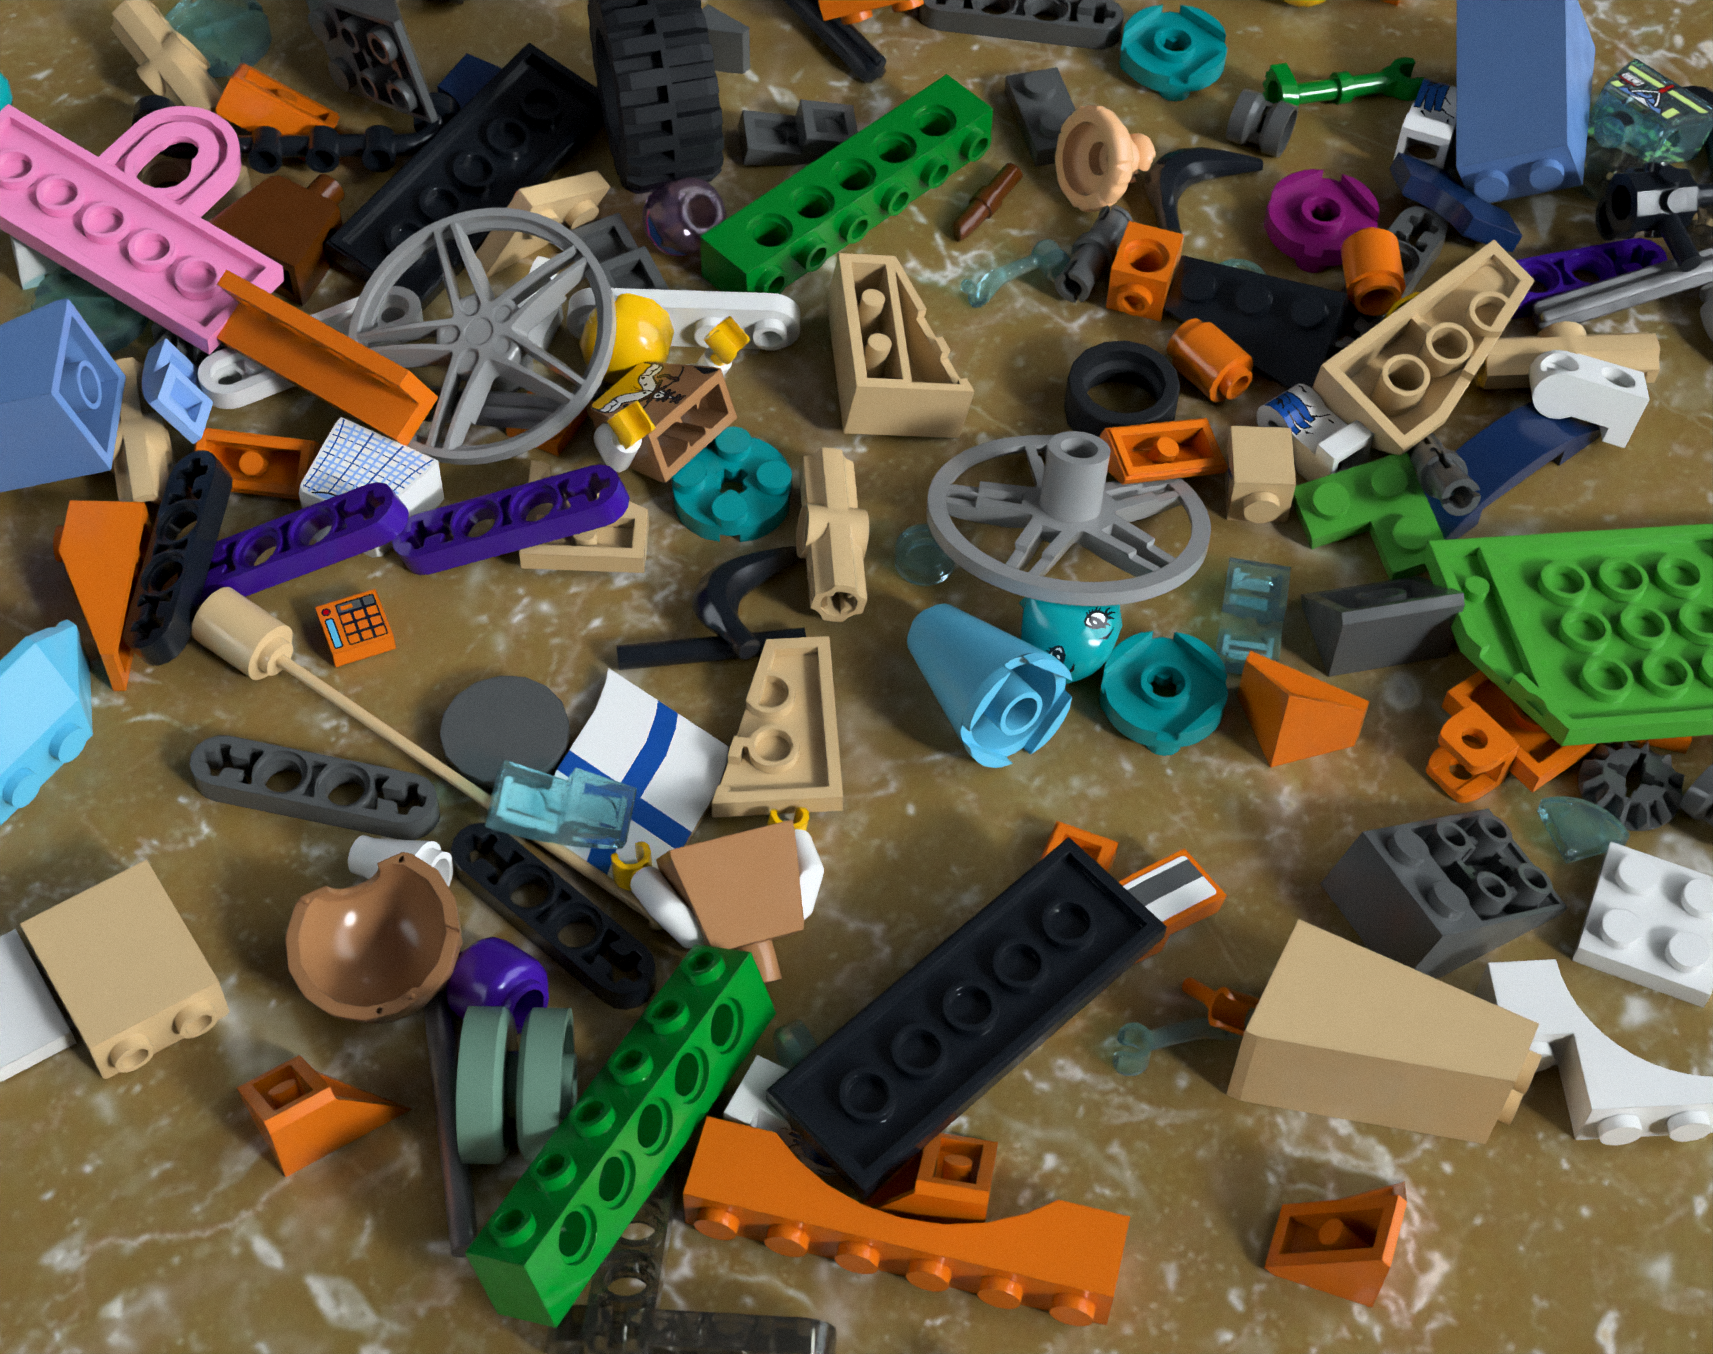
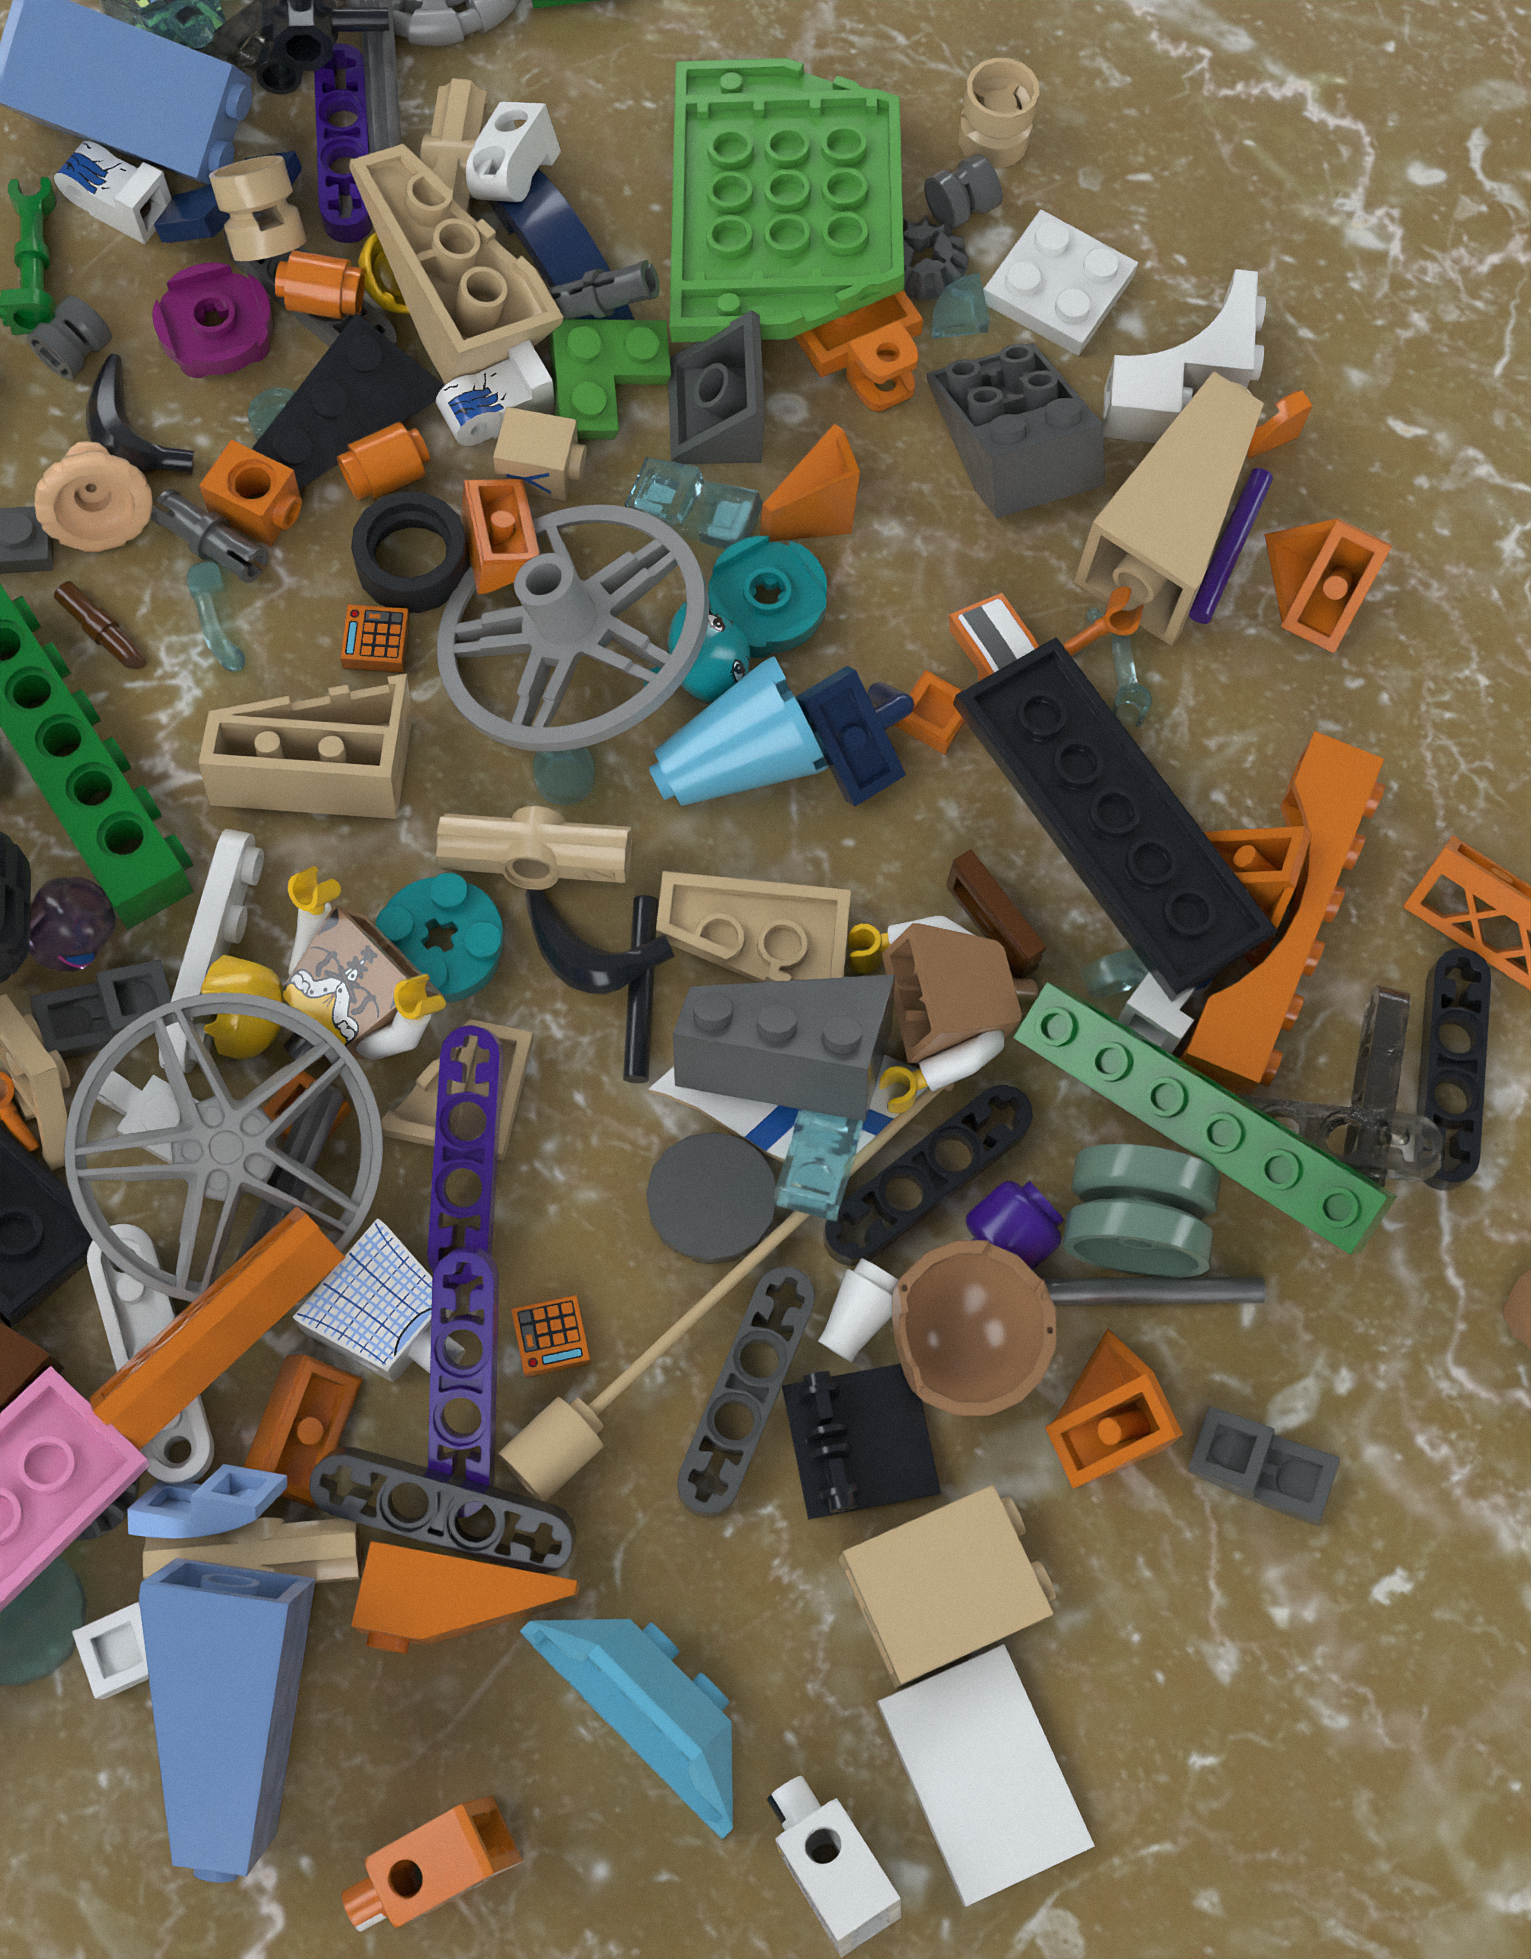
camera: 85 degrees left, 15 degrees up
(259, 879) = (859, 1441): none -> black hinge
(268, 1268) = (1263, 1466): none -> dark grey slope
(659, 752) = (787, 1041): none -> dark grey wedge
(843, 933) = (995, 913): none -> reddish brown tile
(1013, 771) = (854, 731): none -> dark blue plate
(1027, 391) = (375, 638): none -> orange tile
(1373, 1138) = (1230, 545): none -> dark purple bar
(1433, 179) = (253, 187): none -> tan wheel
(1545, 1170) = (1283, 426): none -> orange tile

